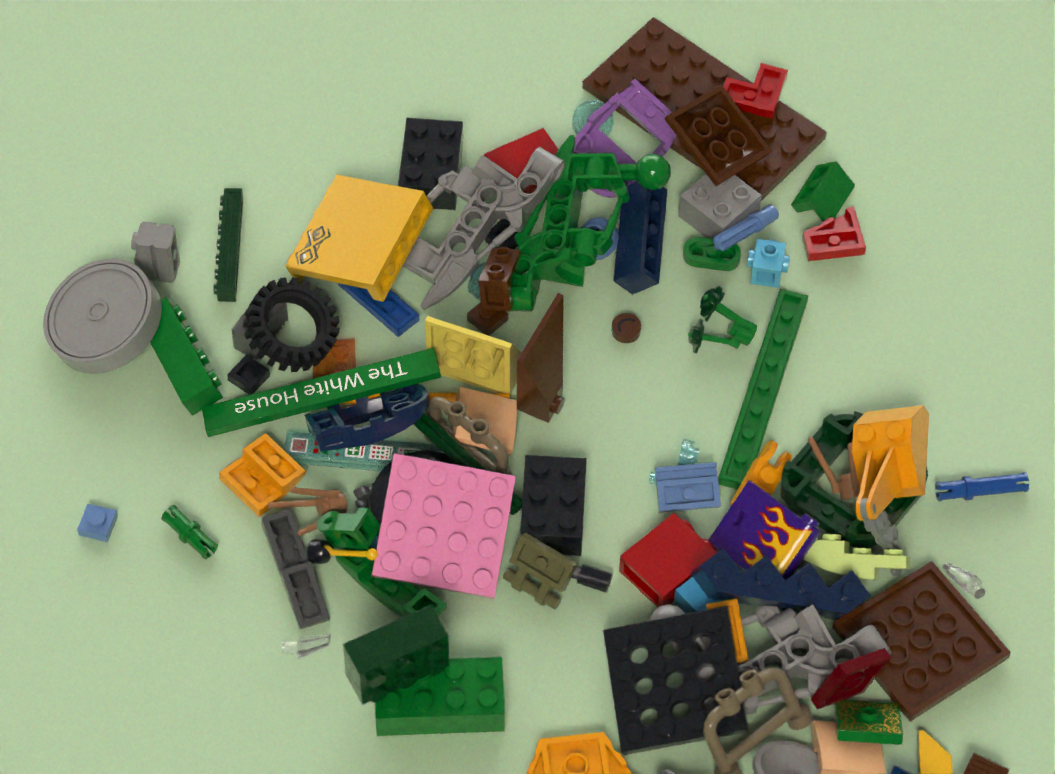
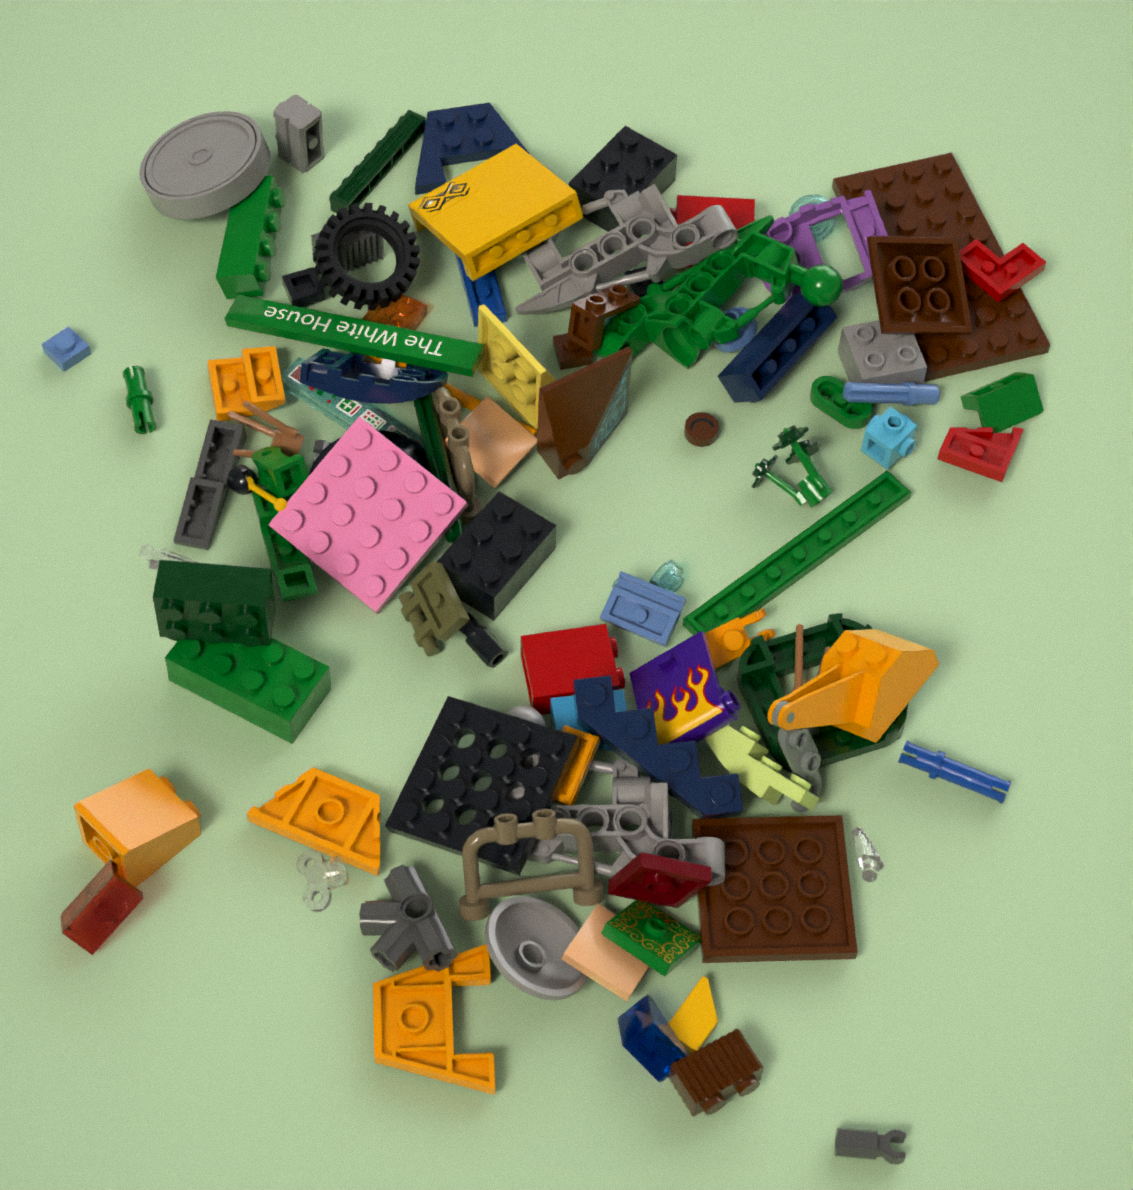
camera: 30 degrees right, 0 degrees up
(279, 188) = (460, 137): none -> dark blue wing

